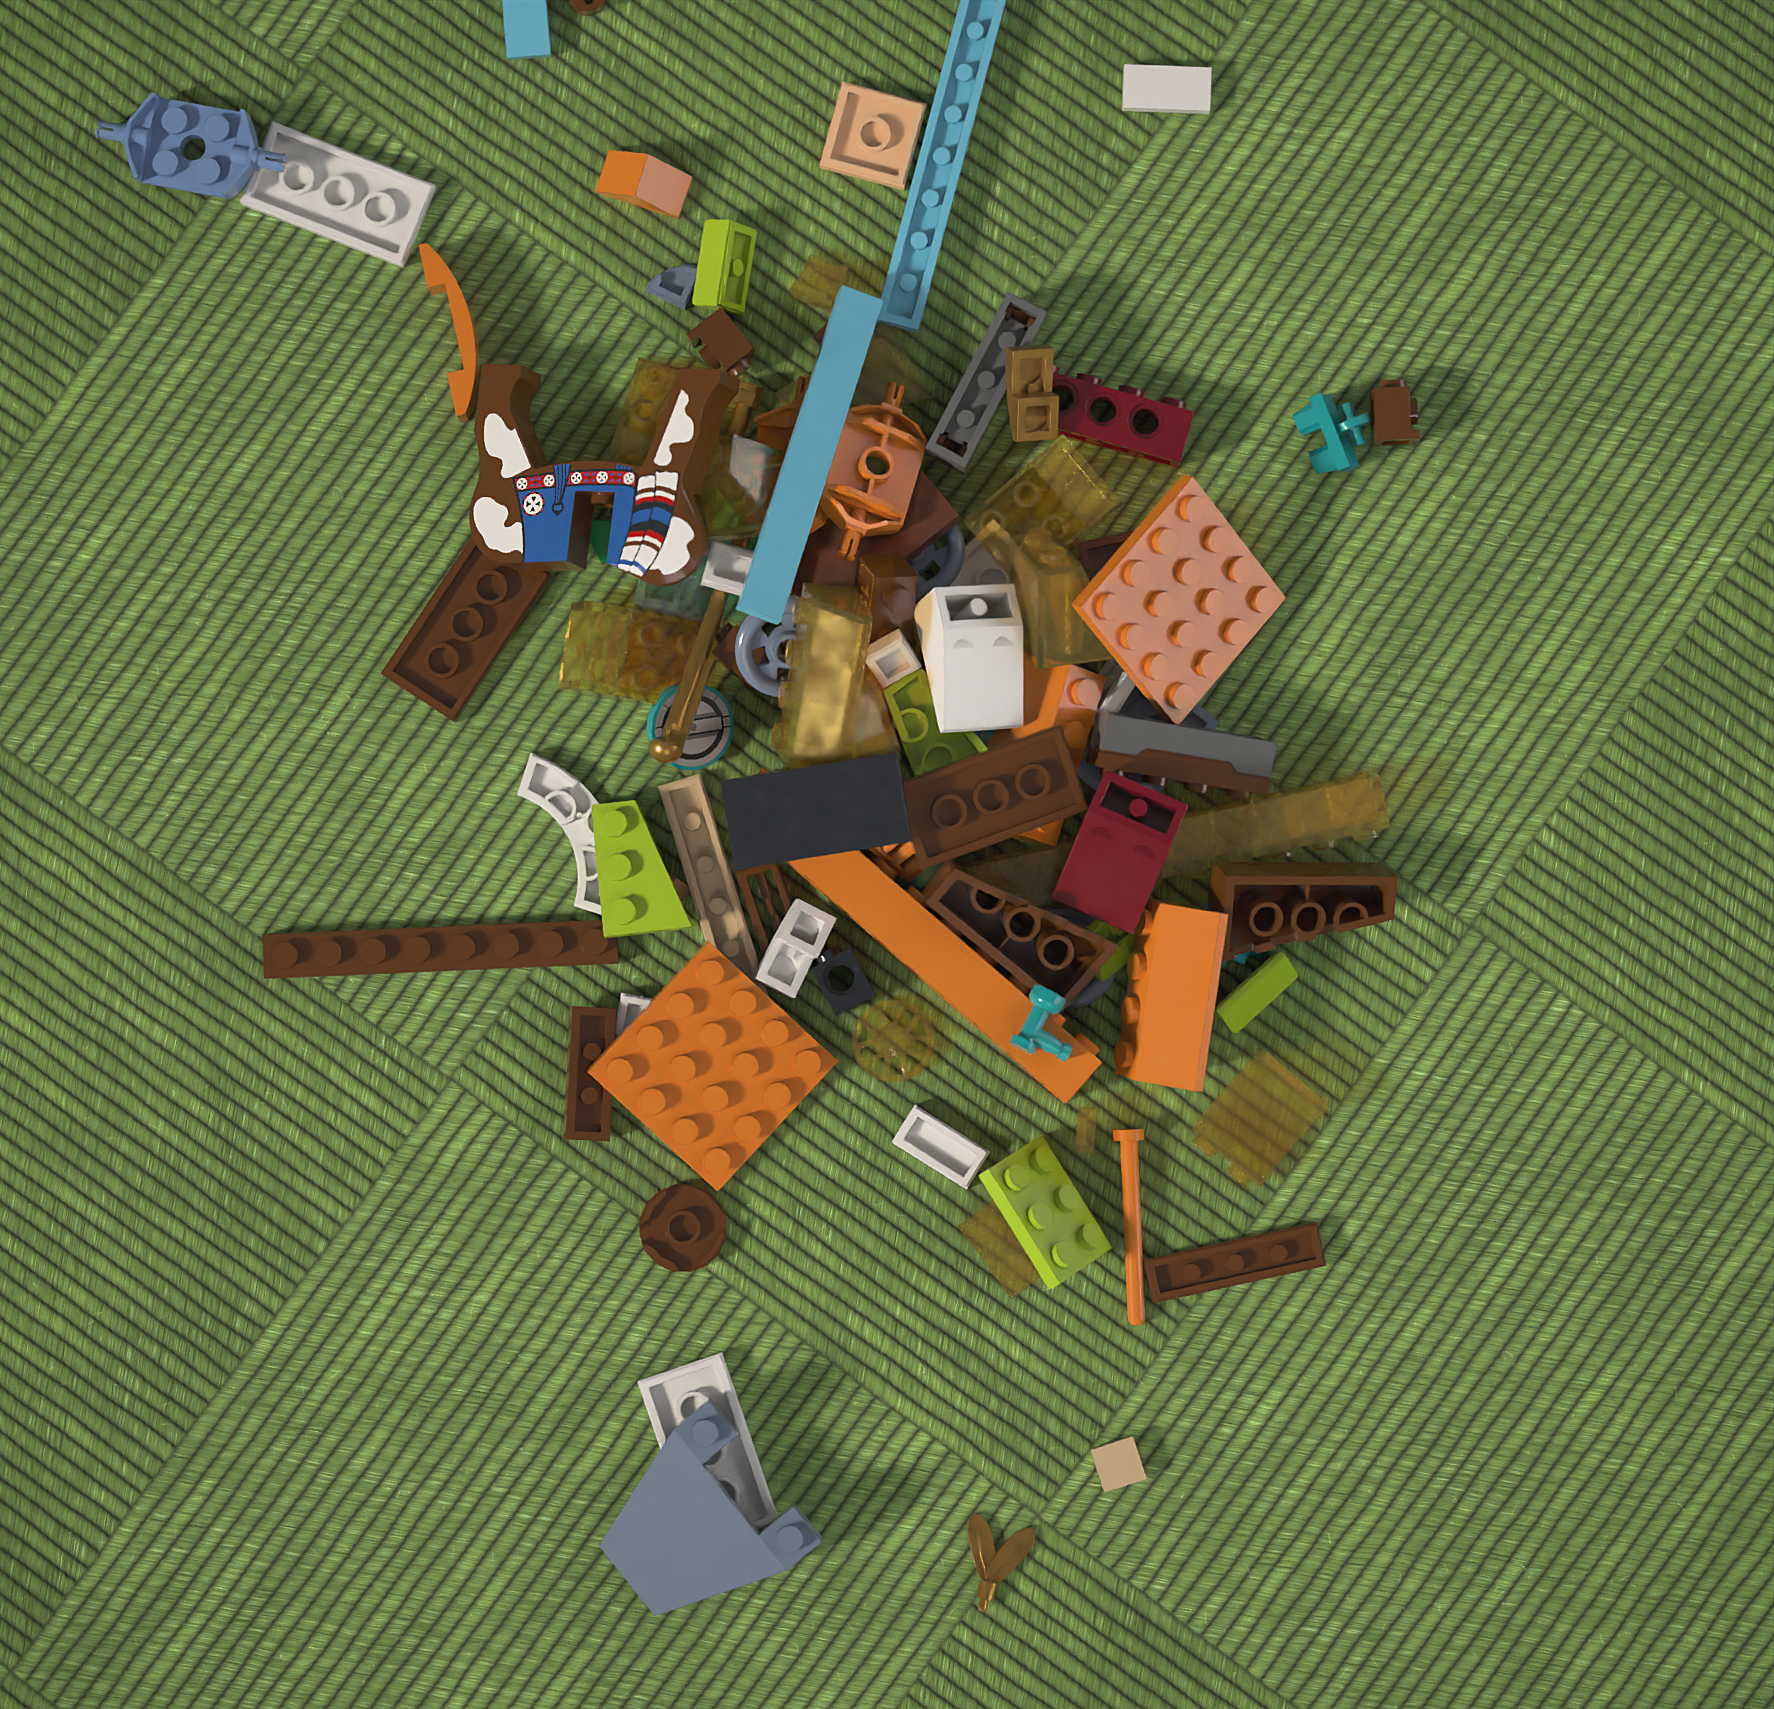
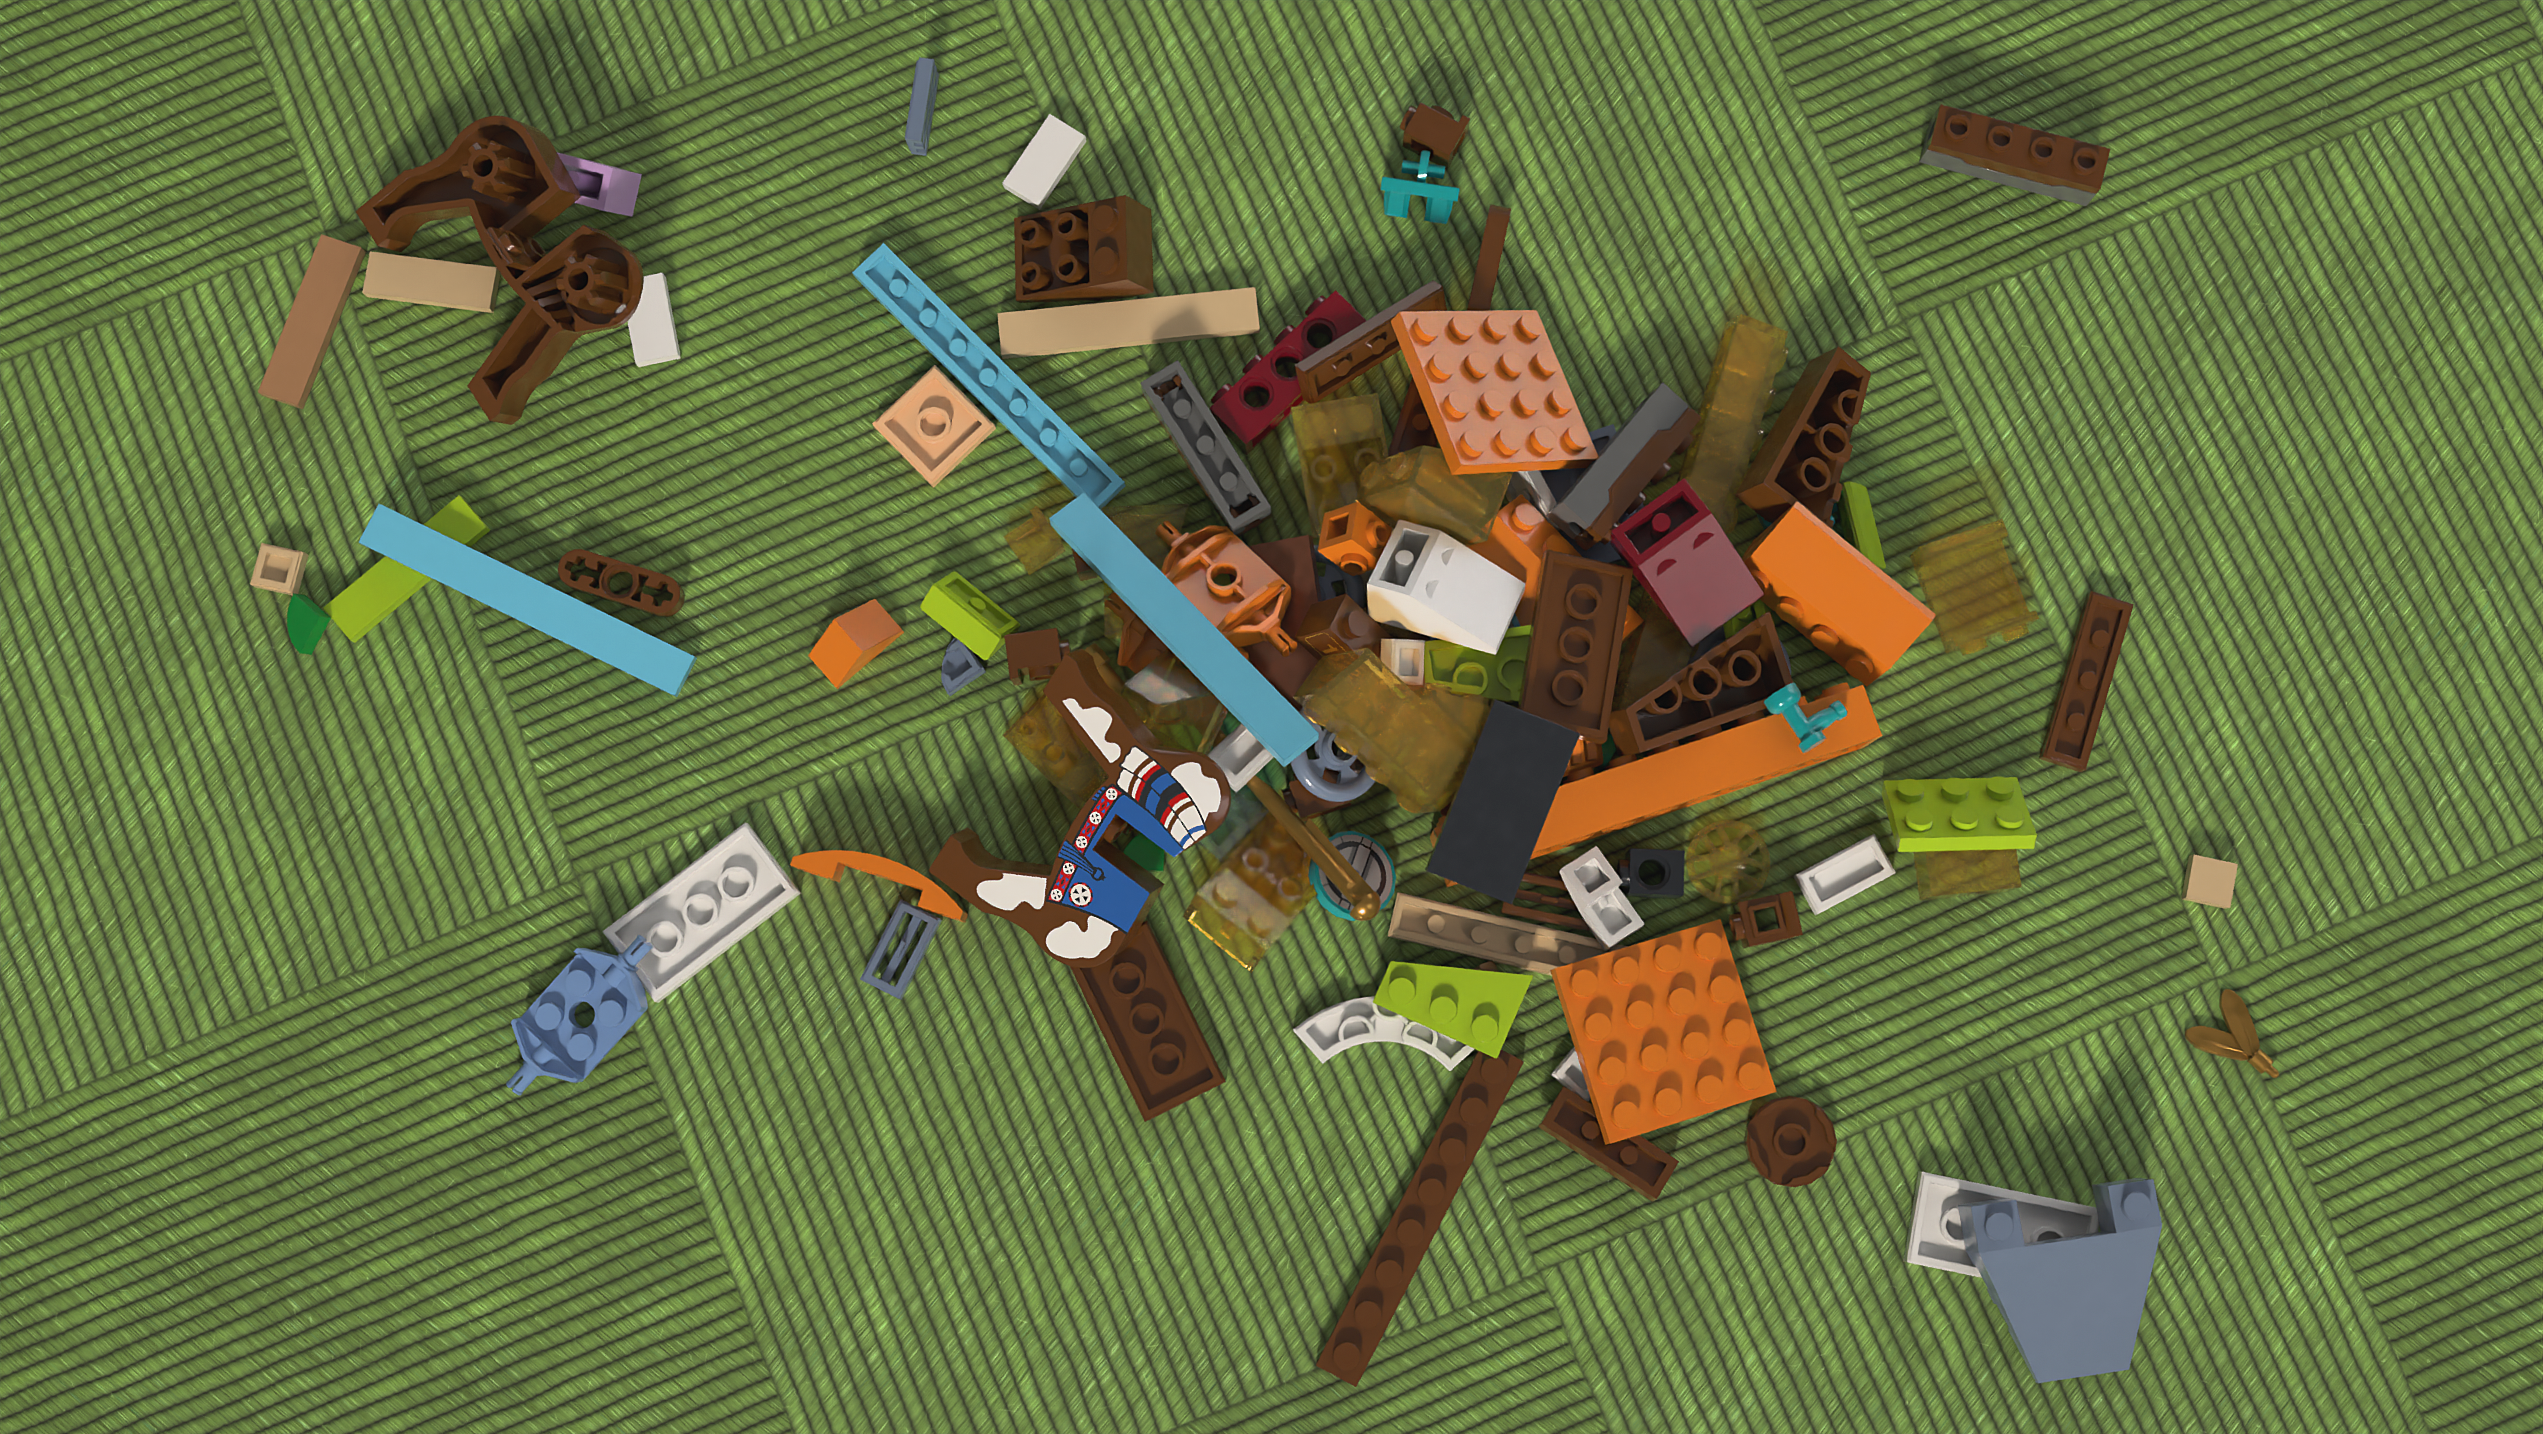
camera: 55 degrees left, 5 degrees down
(367, 385) = (916, 957): none -> sand blue tile
(871, 1112) = (1744, 924): none -> reddish brown window
(976, 554) = (1353, 538): none -> orange brick
(1030, 397) = (1245, 417): pearl gold slope -> none
(1064, 249) = (1128, 323): none -> tan tile
(1085, 1130) = (1903, 740): clear yellow tile -> none
(1103, 173) = (1084, 252): none -> reddish brown slope
(1132, 1222) = (1931, 709): orange bar -> none
(1161, 466) = (1362, 346): none -> reddish brown tile
(1304, 530) = (1489, 258): none -> reddish brown beam
(1675, 937) = (2014, 155): none -> reddish brown piece

